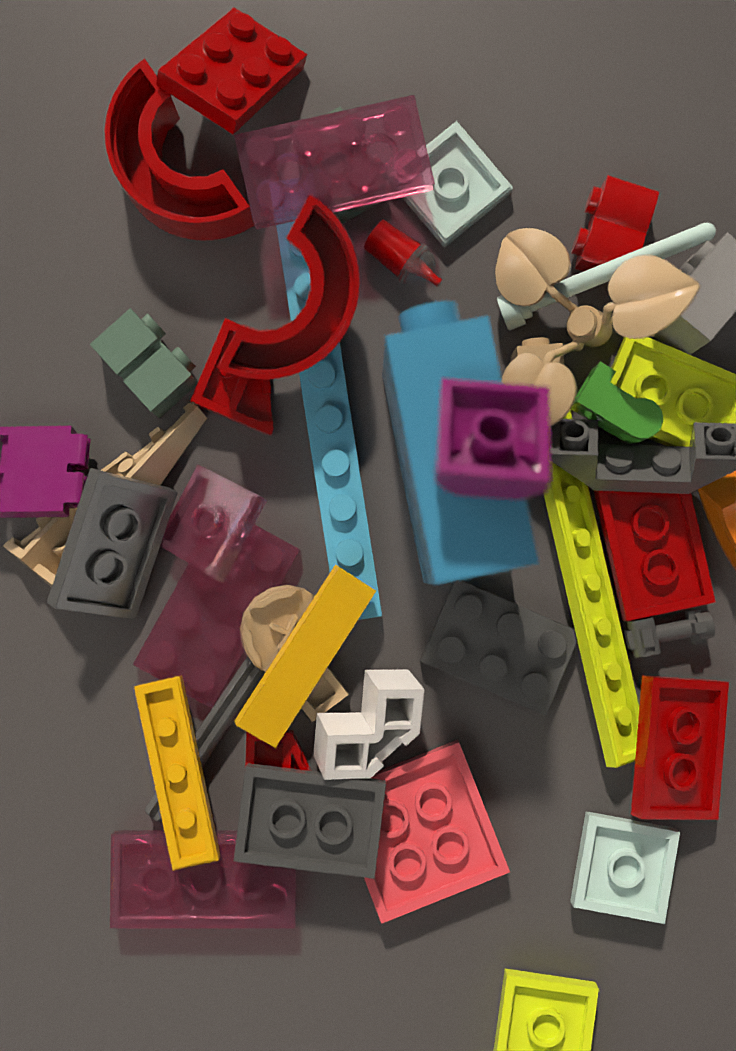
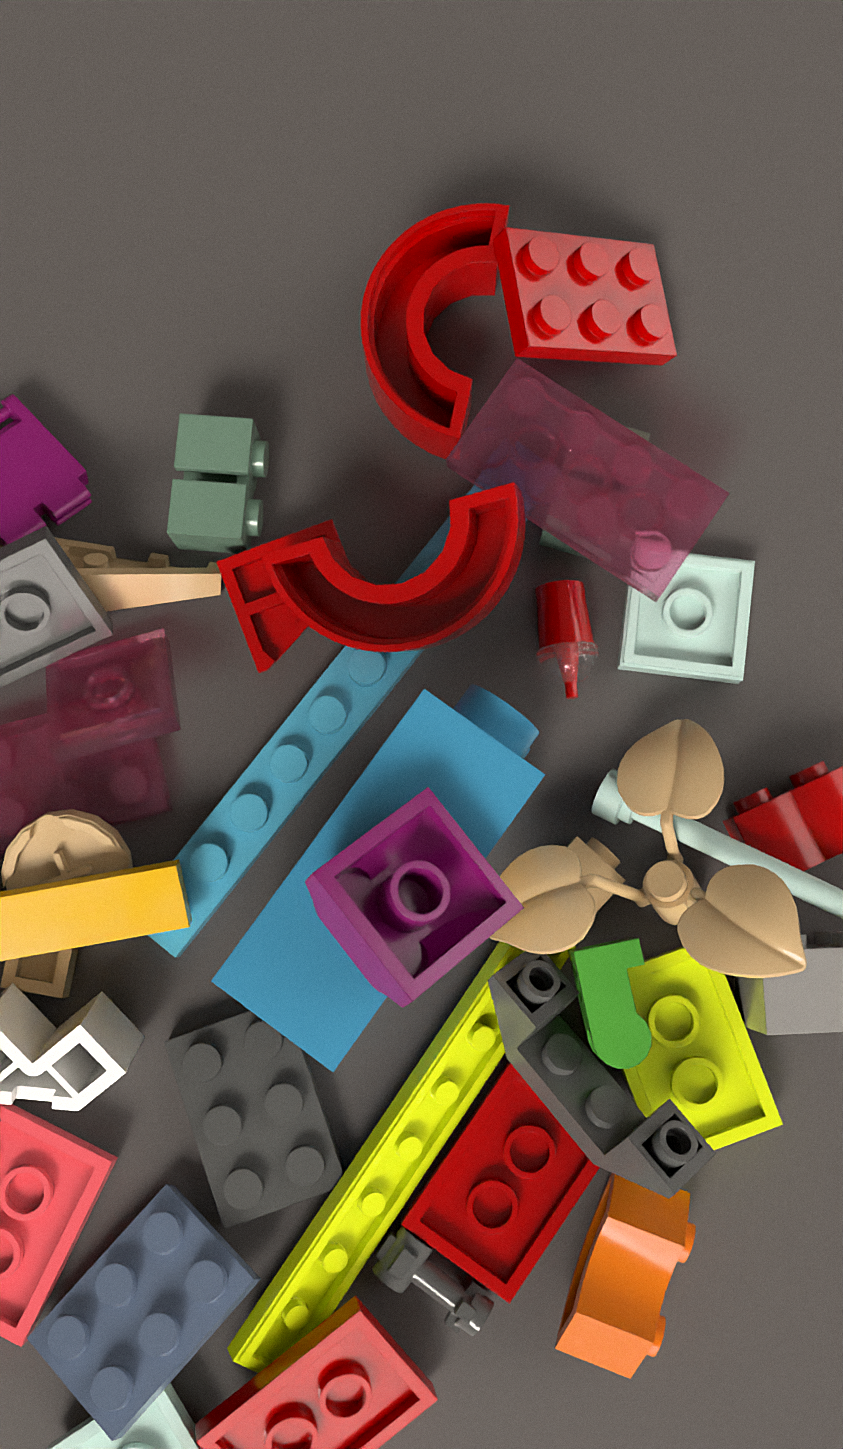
camera: 55 degrees right, 5 degrees down
(549, 792) = (143, 1311): none -> sand blue plate

